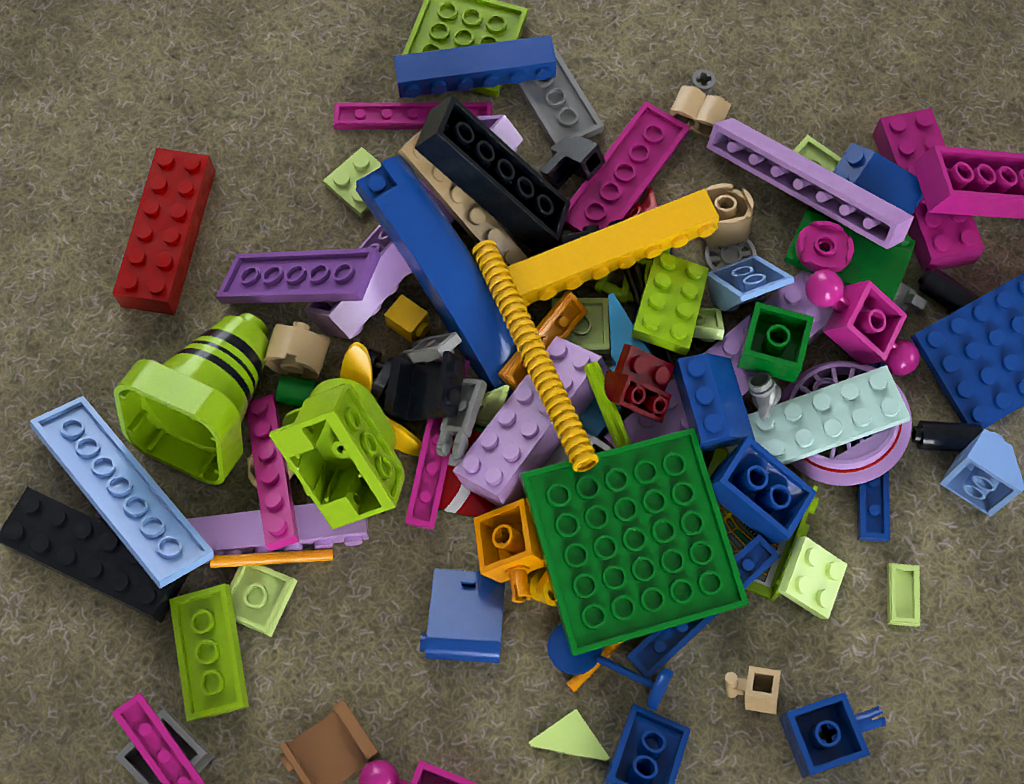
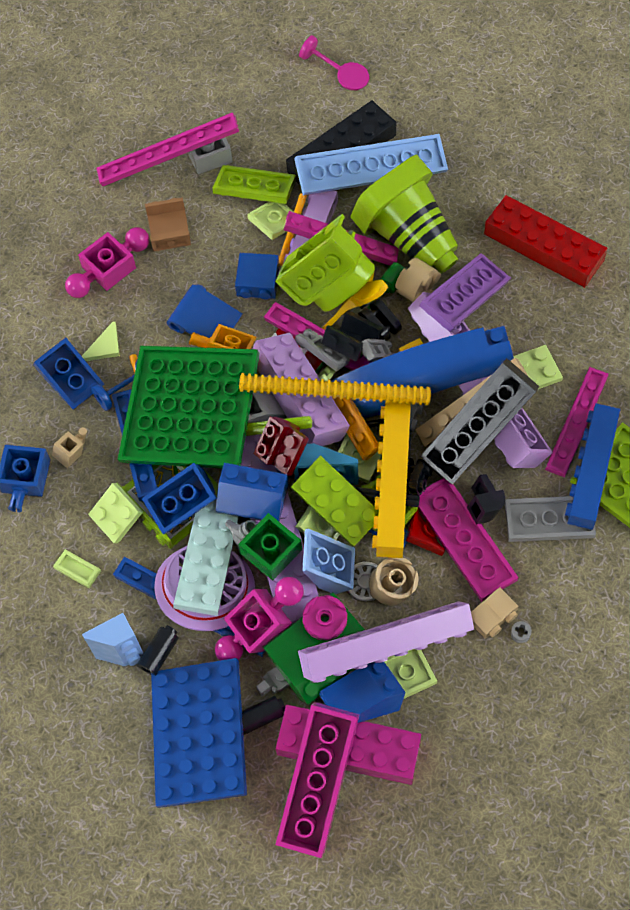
camera: 120 degrees right, 5 degrees down
(371, 568) = (257, 275): none -> blue brick

